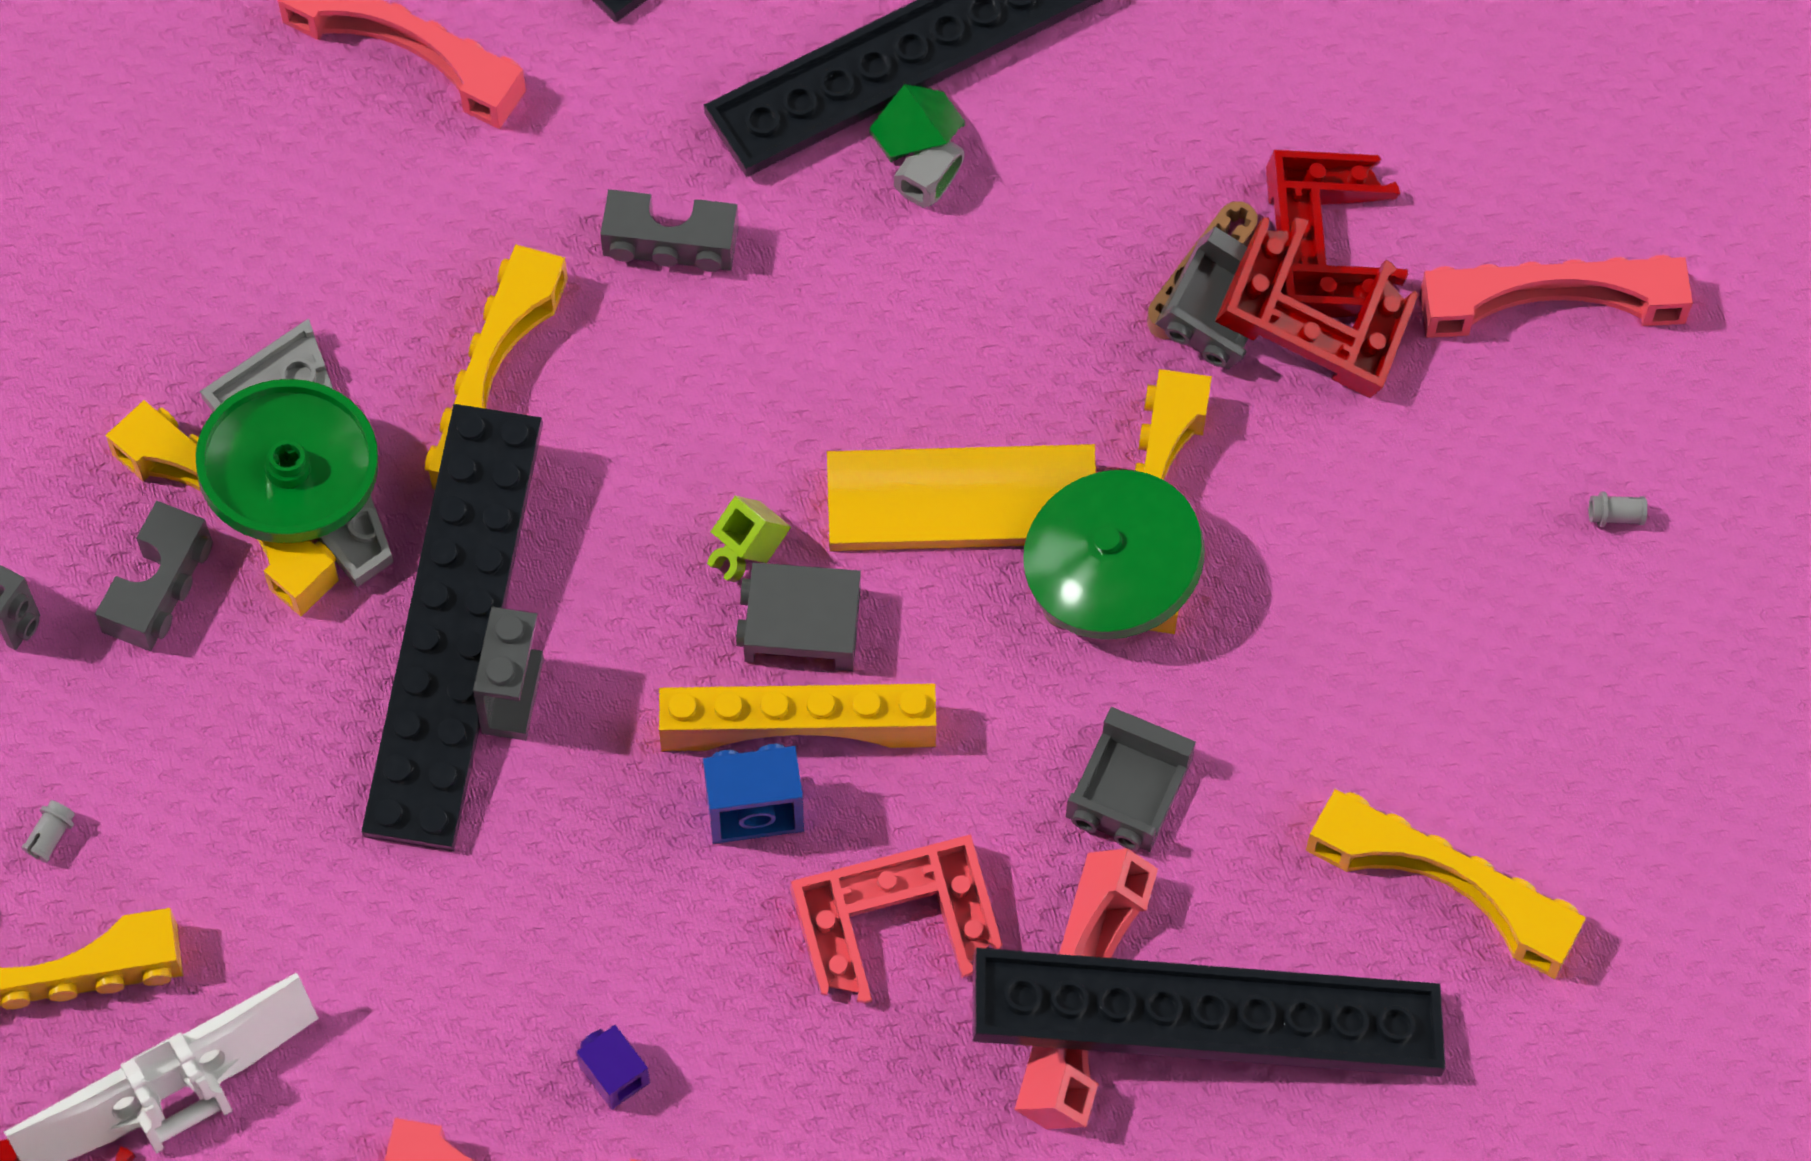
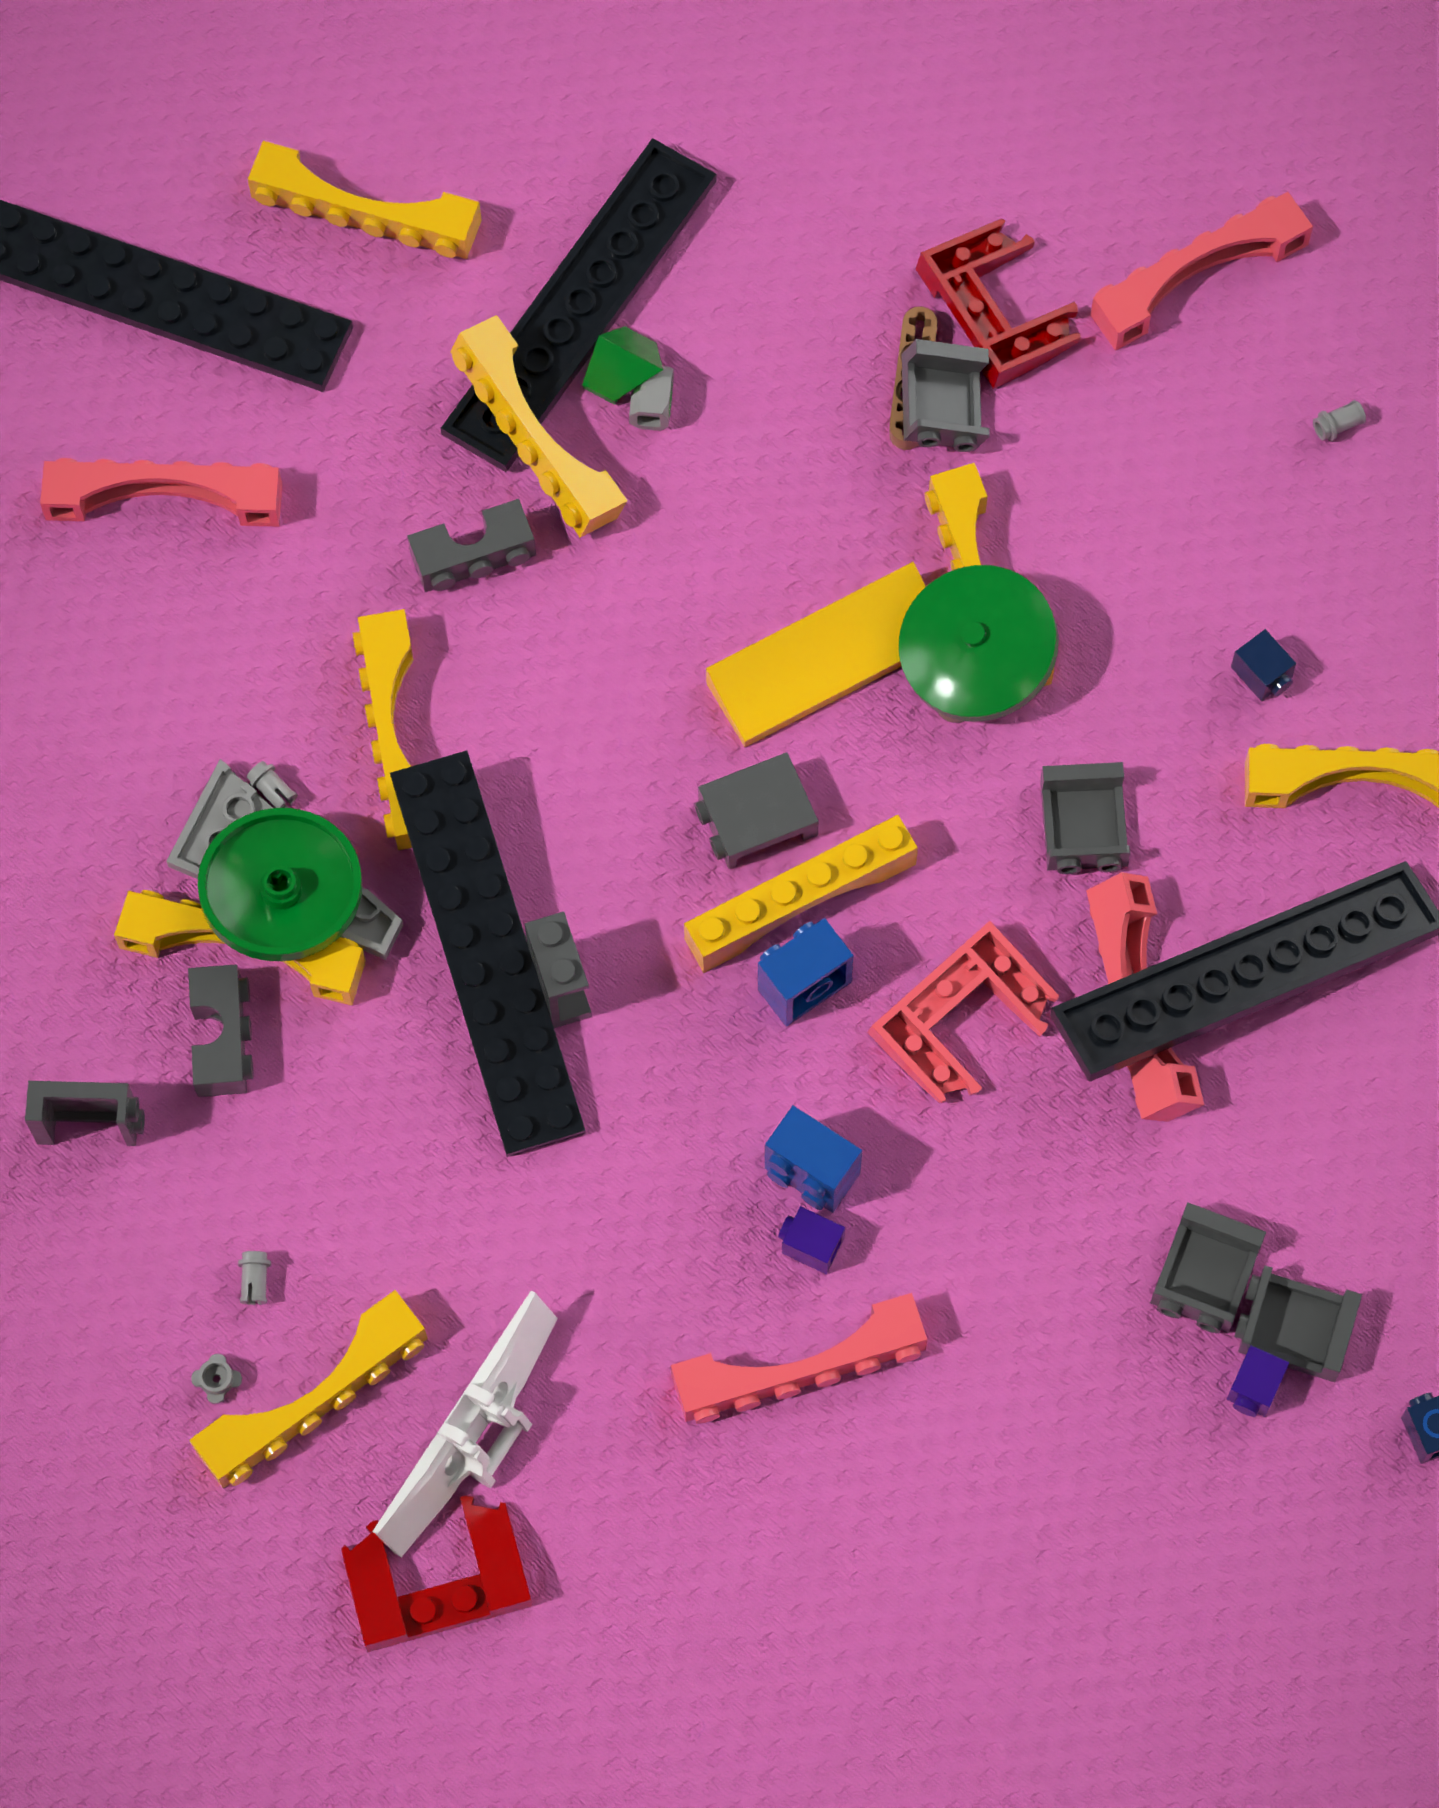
camera: 25 degrees left, 5 degrees up
(343, 366) = (270, 785): none -> light grey pin
(654, 984) = (812, 1160): none -> blue brick
(748, 533) = (679, 764): lime brick -> none
(805, 232) = (581, 493): none -> yellow arch
(1258, 308) = (981, 389): red wedge -> none
(1400, 716) = (1264, 666): none -> dark blue brick

